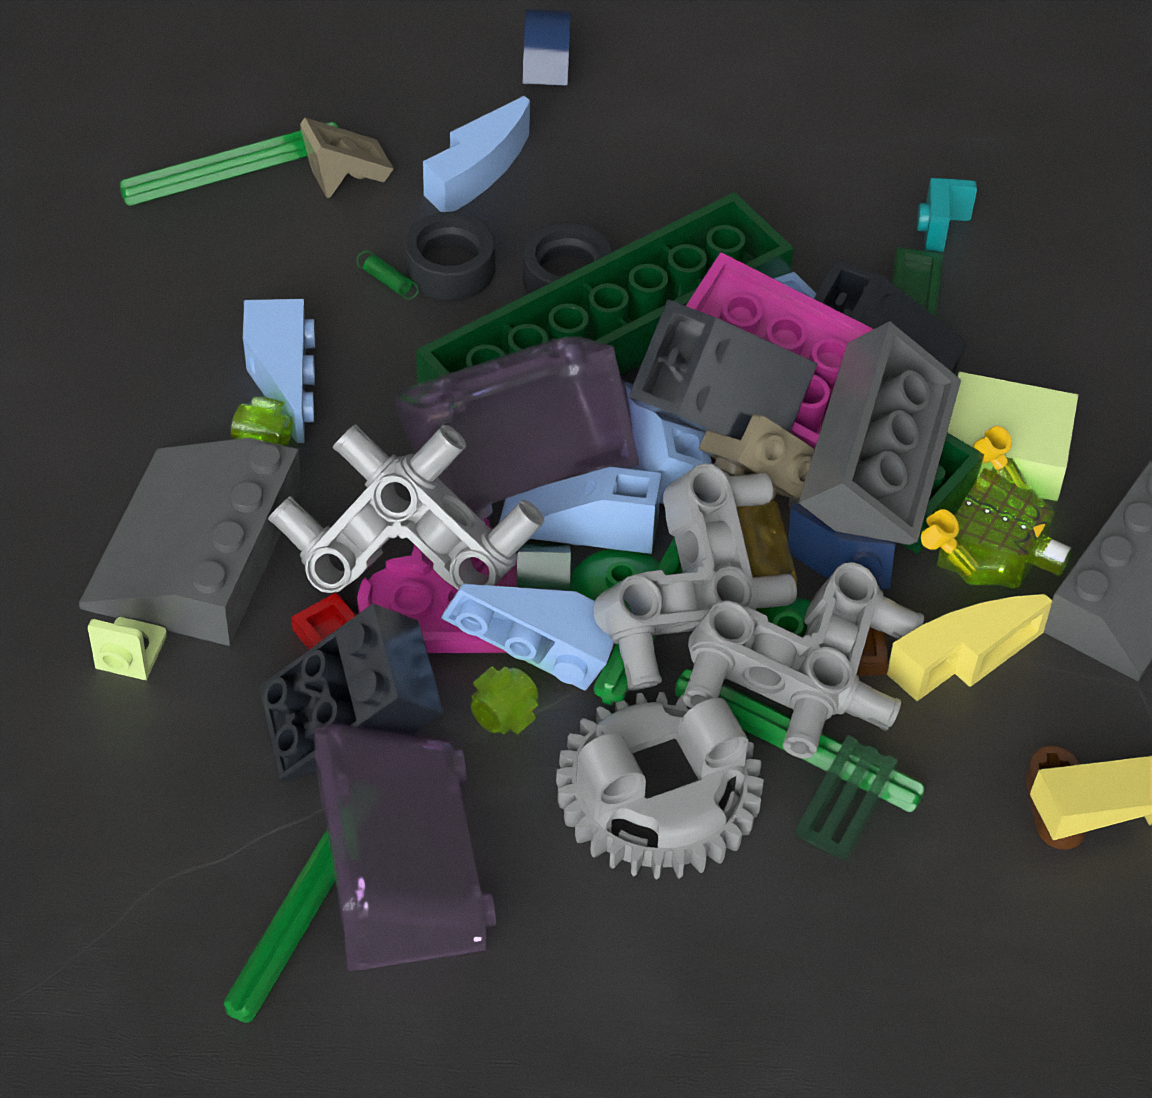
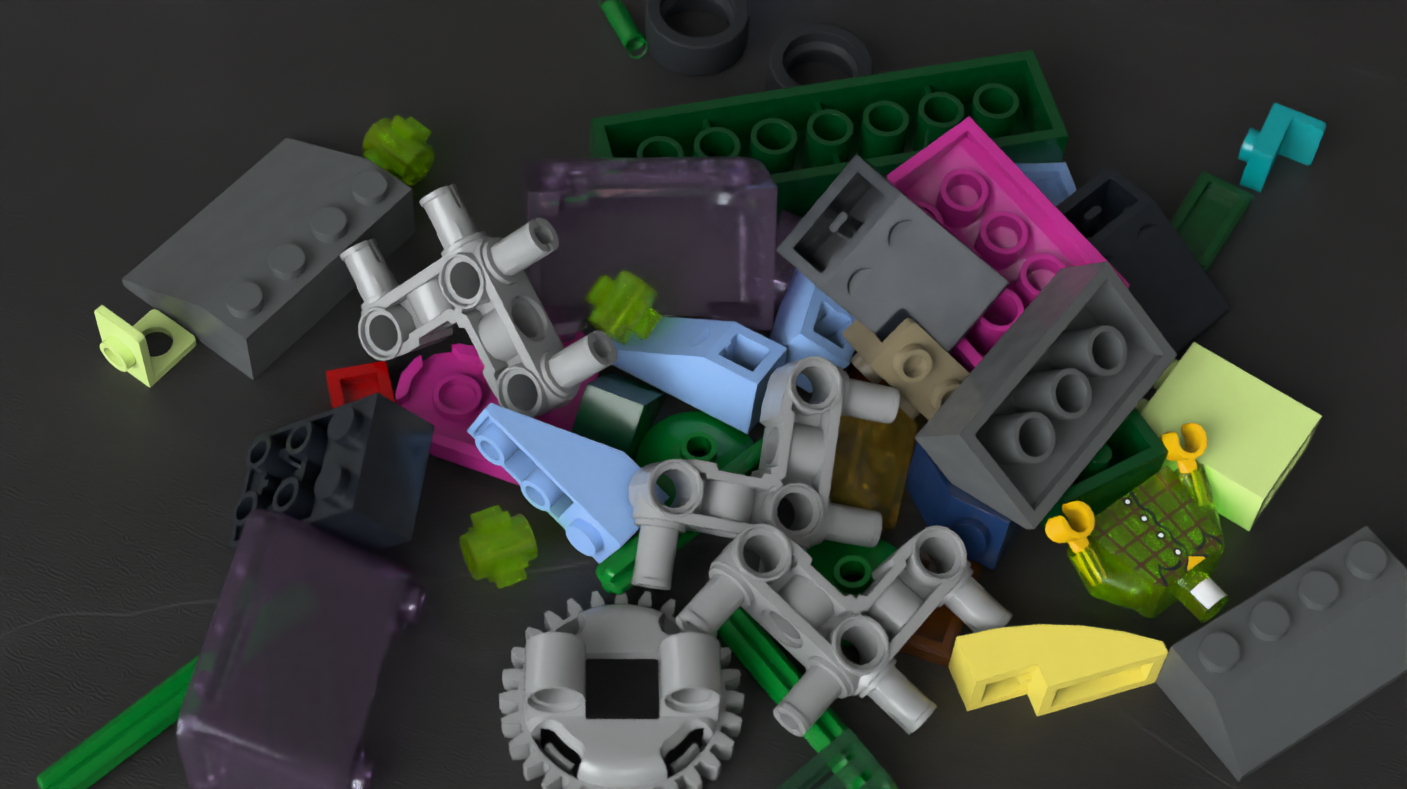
camera: 20 degrees right, 5 degrees up
(277, 358) = (461, 65): light blue slope -> none
(516, 480) = (623, 307): none -> clear neon green gear

